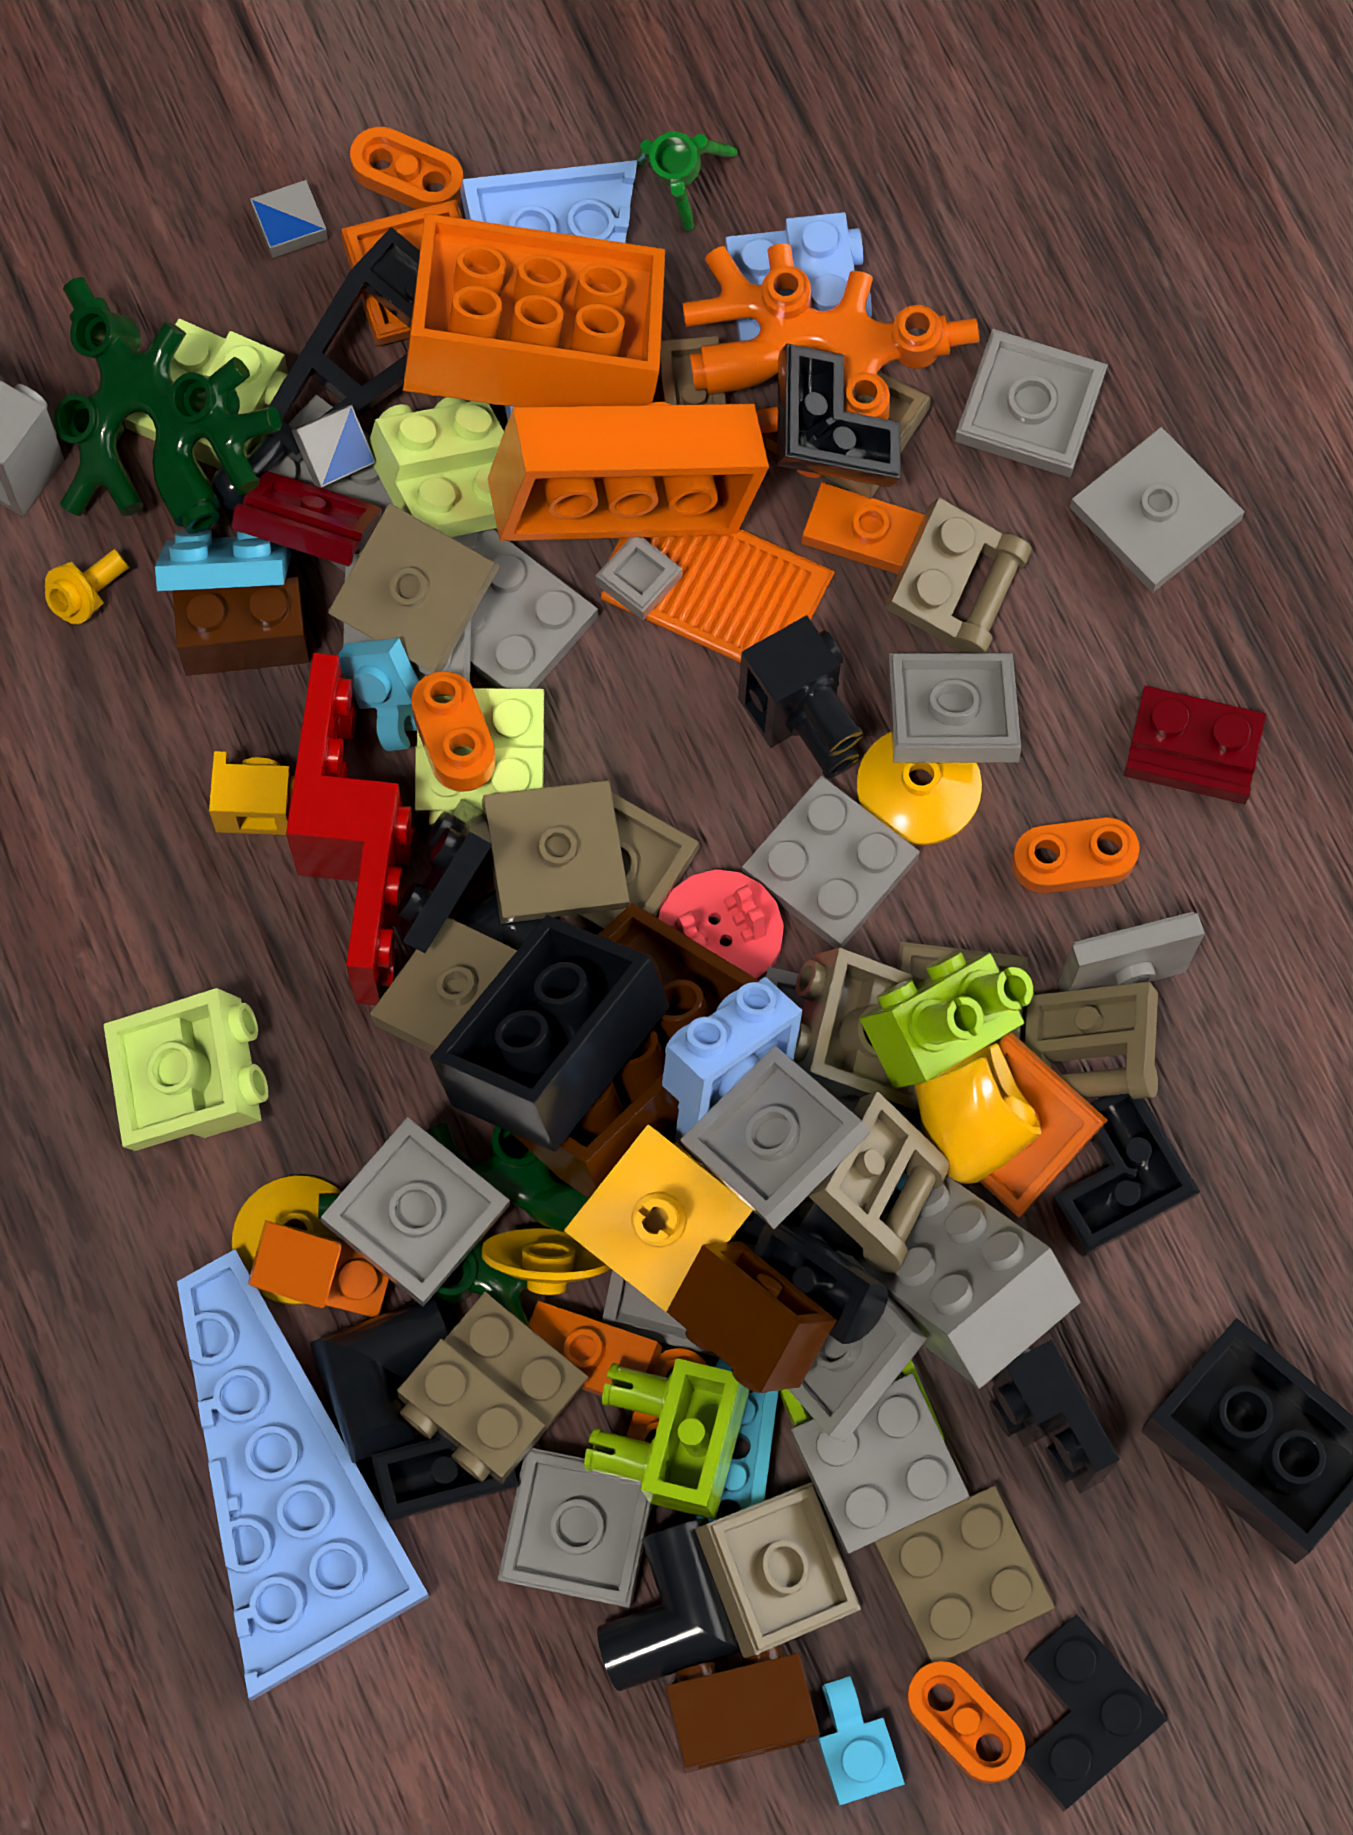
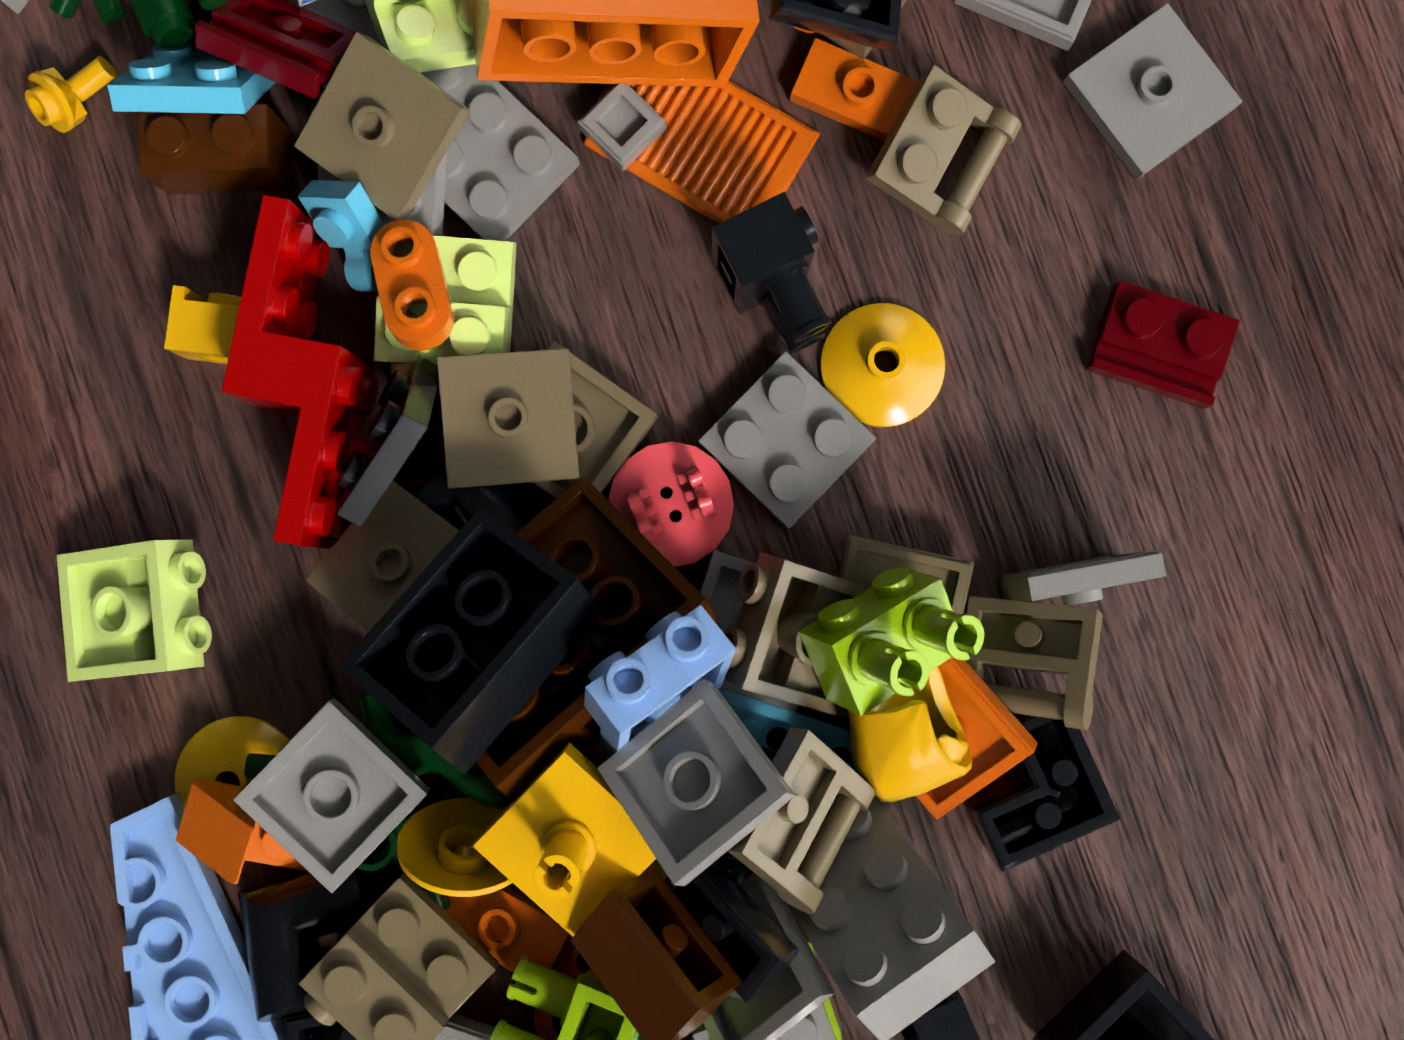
camera: 10 degrees right, 15 degrees up
(953, 708) = (926, 291): light grey plate -> none
(1078, 856) = (1033, 451): orange plate -> none

